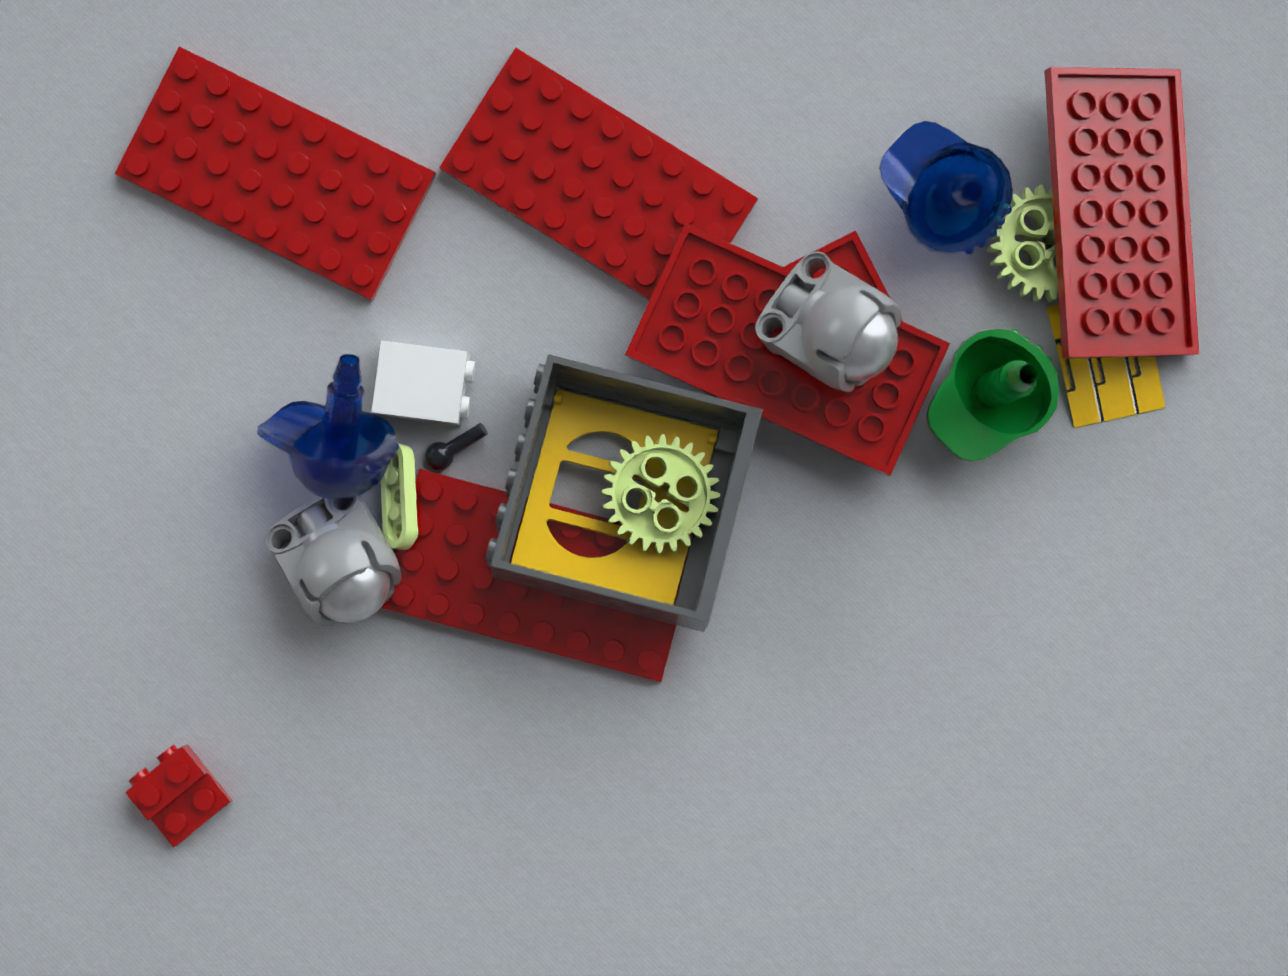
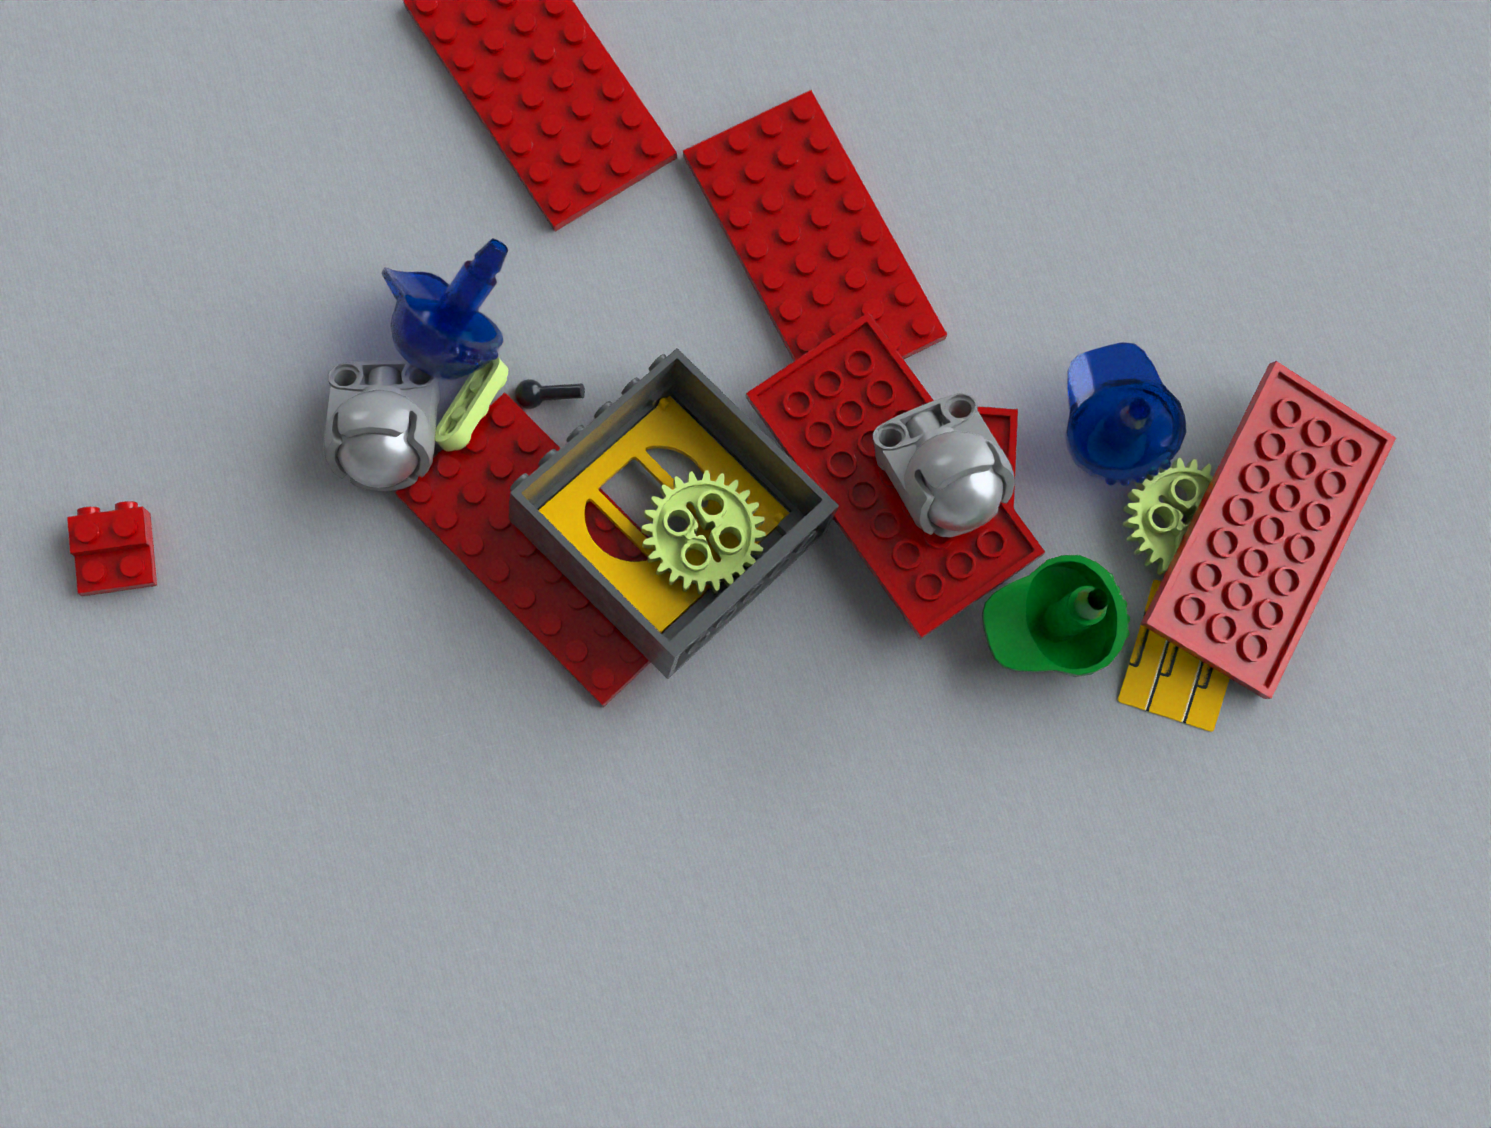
camera: 30 degrees right, 10 degrees down
(422, 383) = (553, 321): white brick -> none

